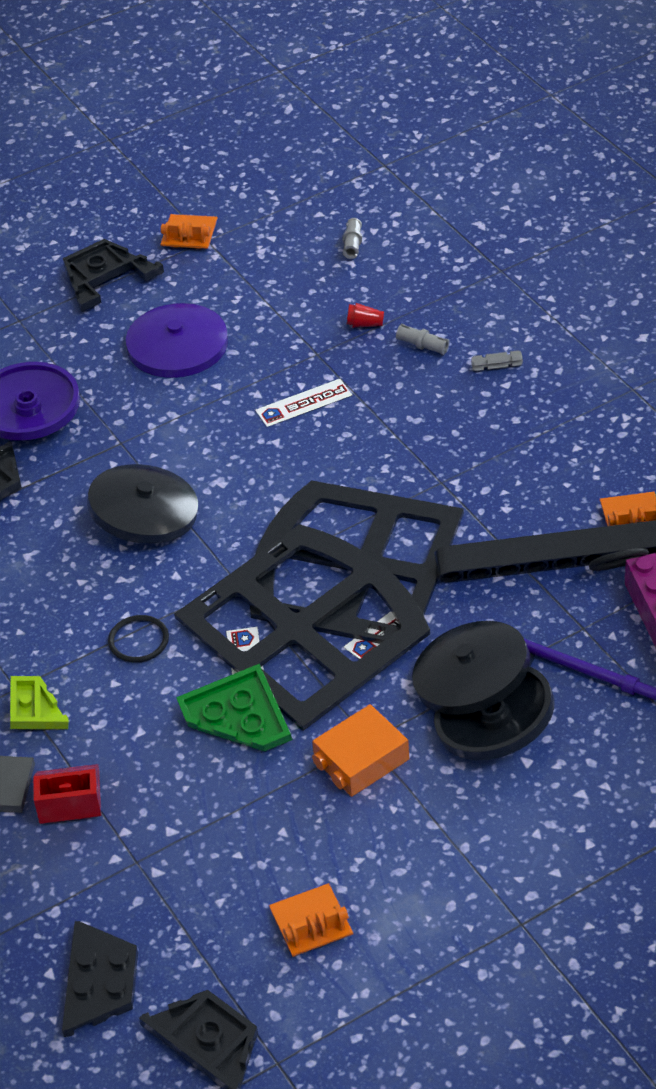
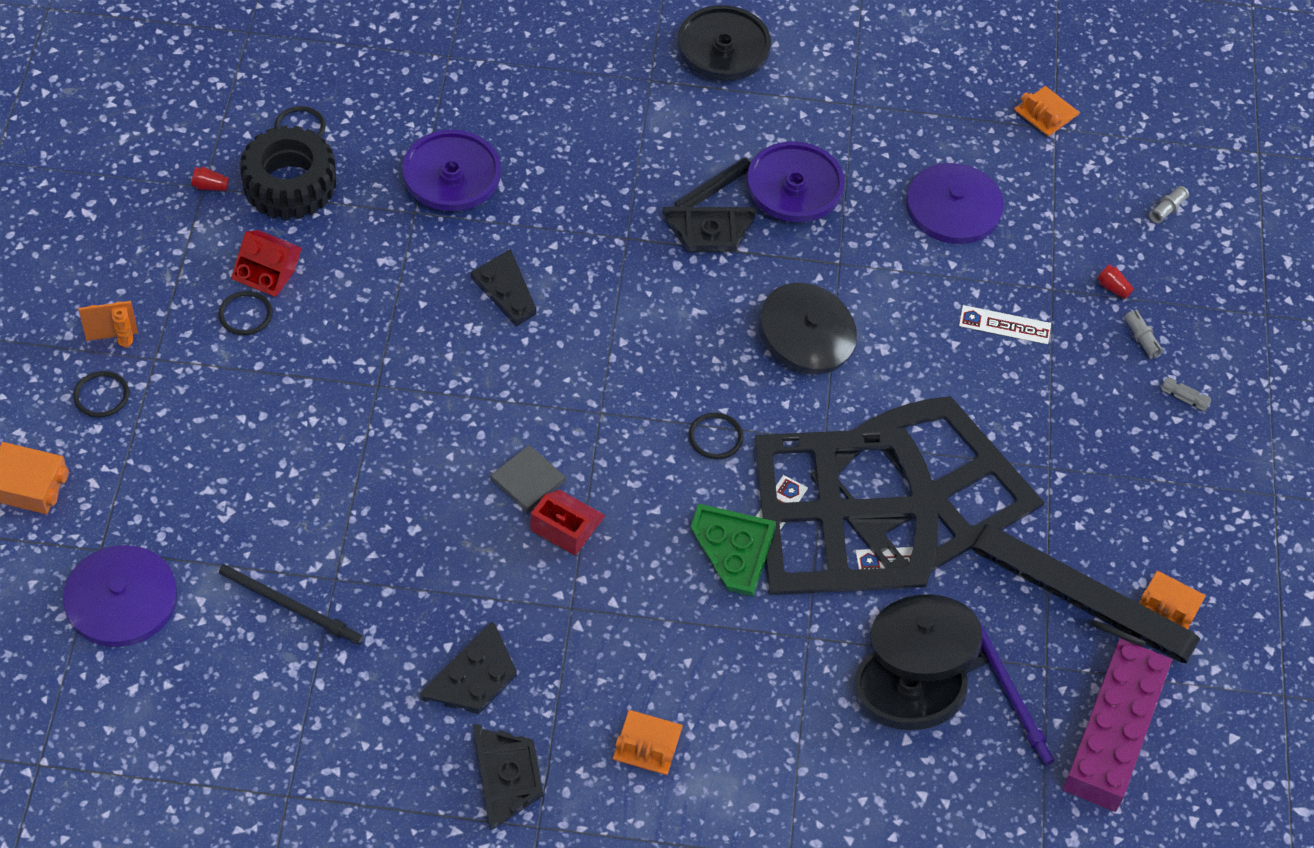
camera: 30 degrees right, 10 degrees up
(33, 705) = (598, 436): lime wing -> none
(100, 263) = (950, 95): black wing -> none
(360, 750) = (791, 641): orange brick -> none

